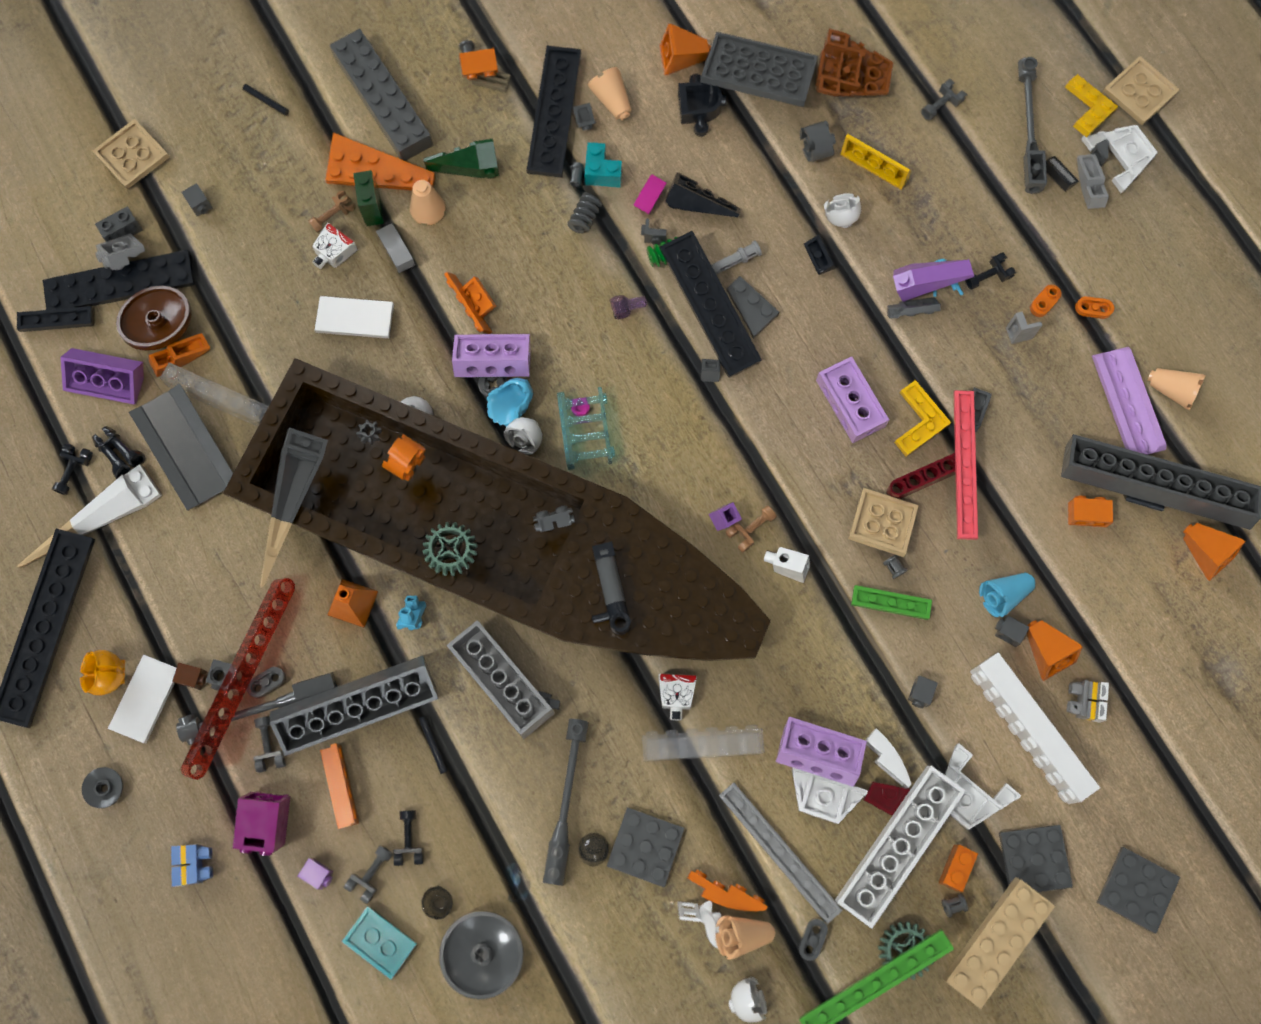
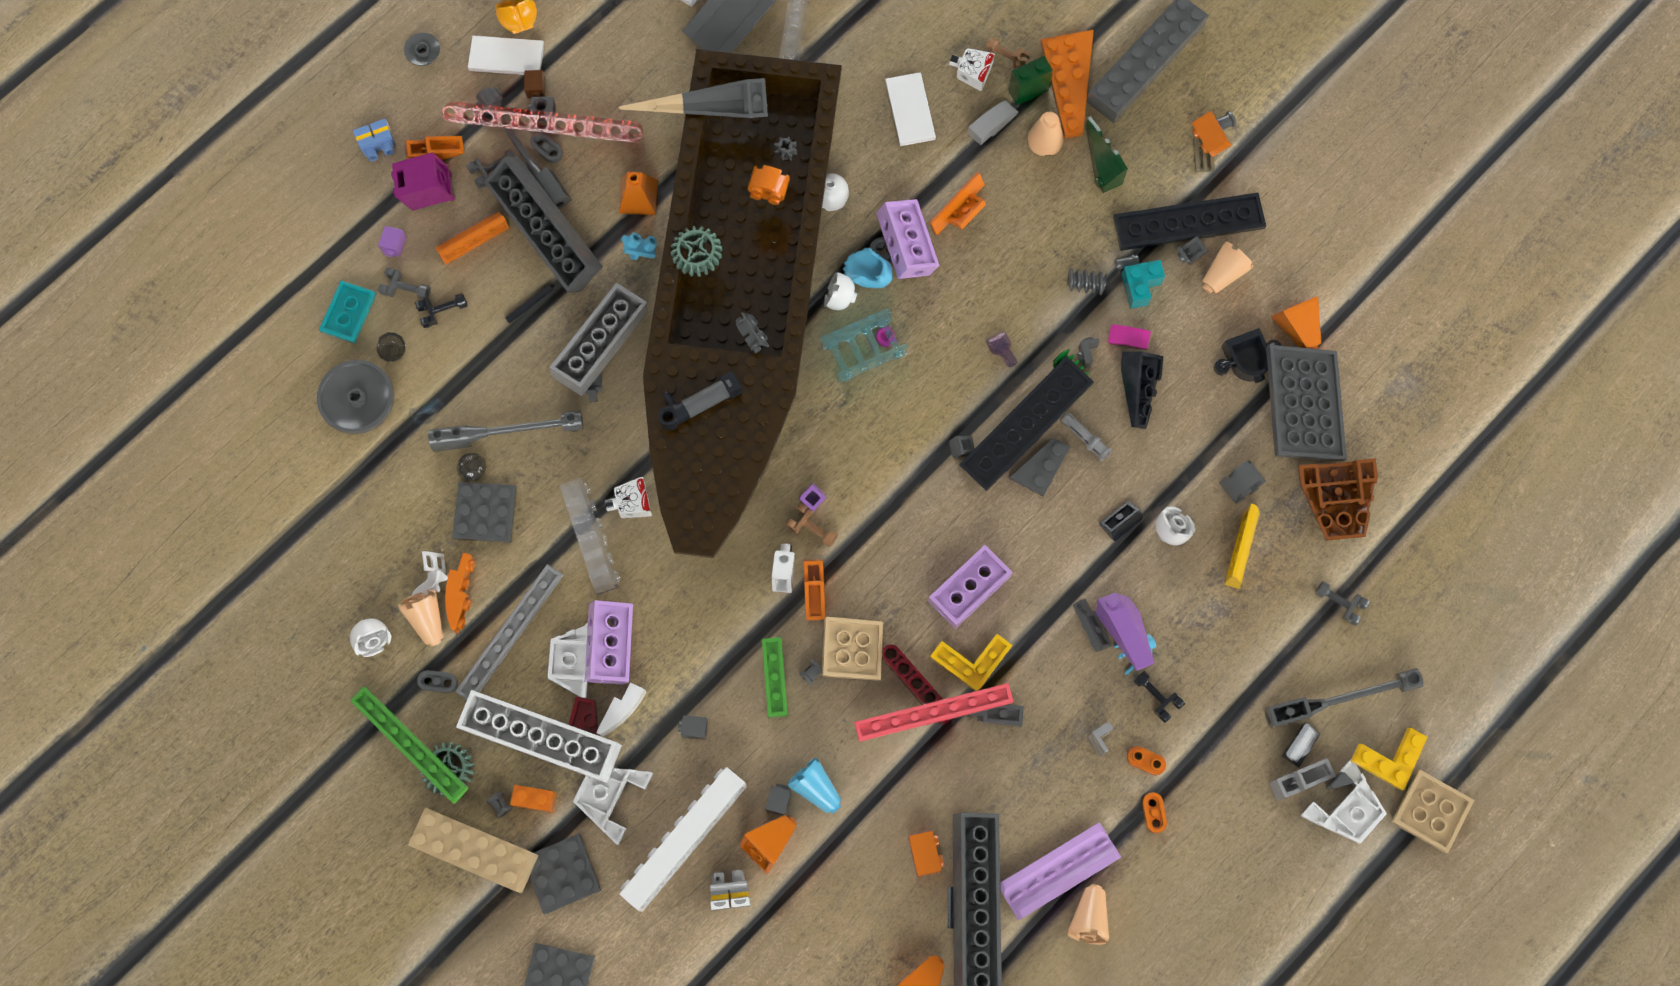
camera: 75 degrees right, 0 degrees up
(223, 803) = (441, 146): none -> orange slope
(814, 541) = (814, 589): none -> orange slope

